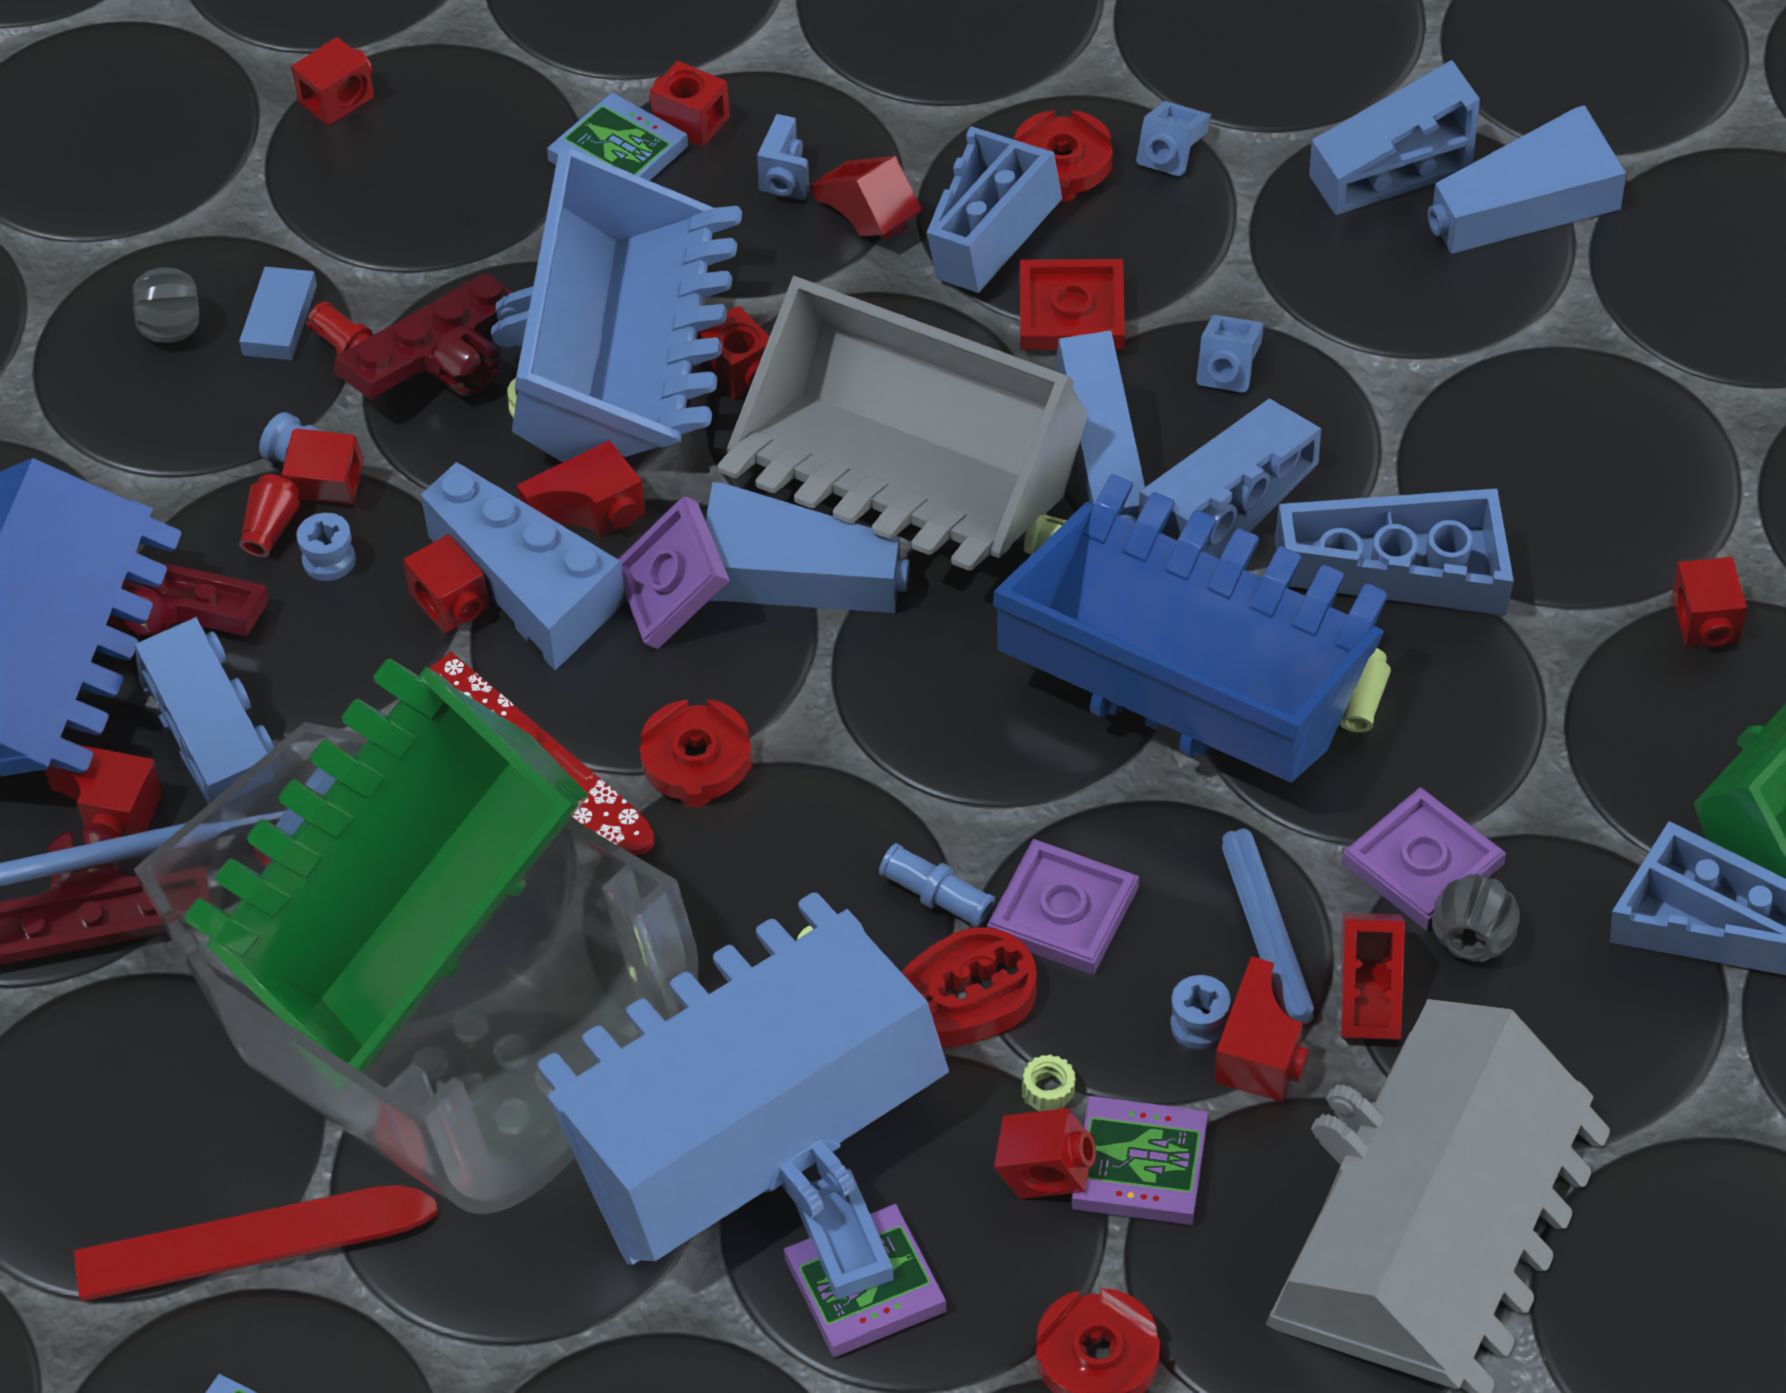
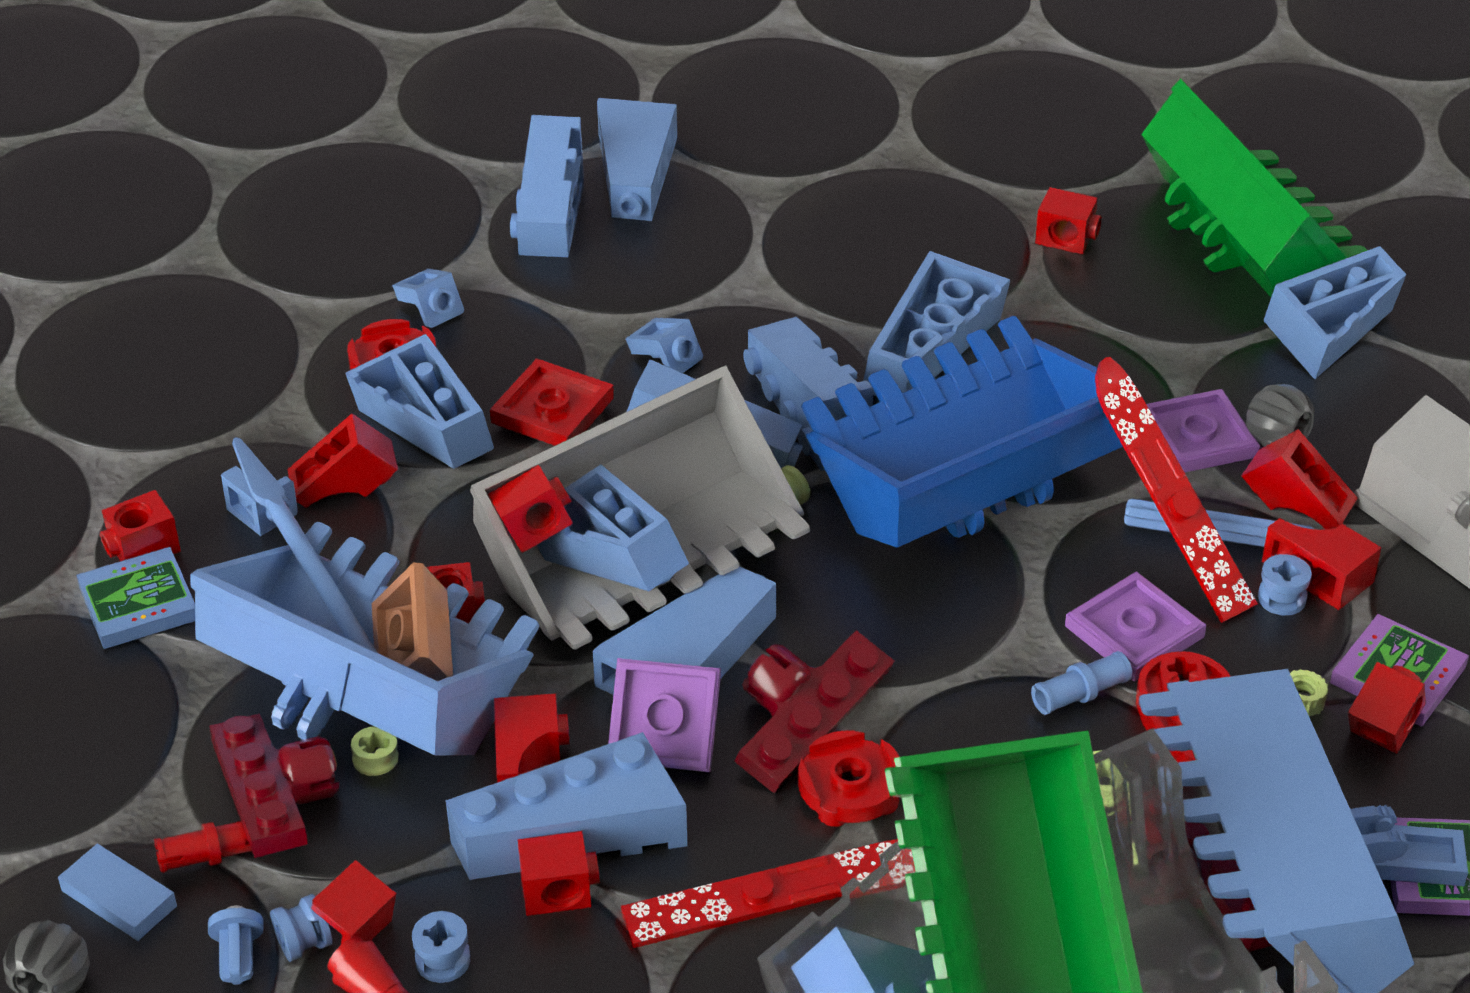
camera: 65 degrees left, 10 degrees down
(255, 412) = (235, 932): none -> medium blue piece
(639, 344) = (414, 623): none -> nougat slope
(743, 154) = (270, 493): none -> medium blue piece
(773, 677) = (805, 703): none -> dark red plate
(815, 337) = (536, 524): none -> red brick
(856, 416) = (614, 534): none -> medium blue wedge
(1215, 839) = (1172, 492): none -> red piece

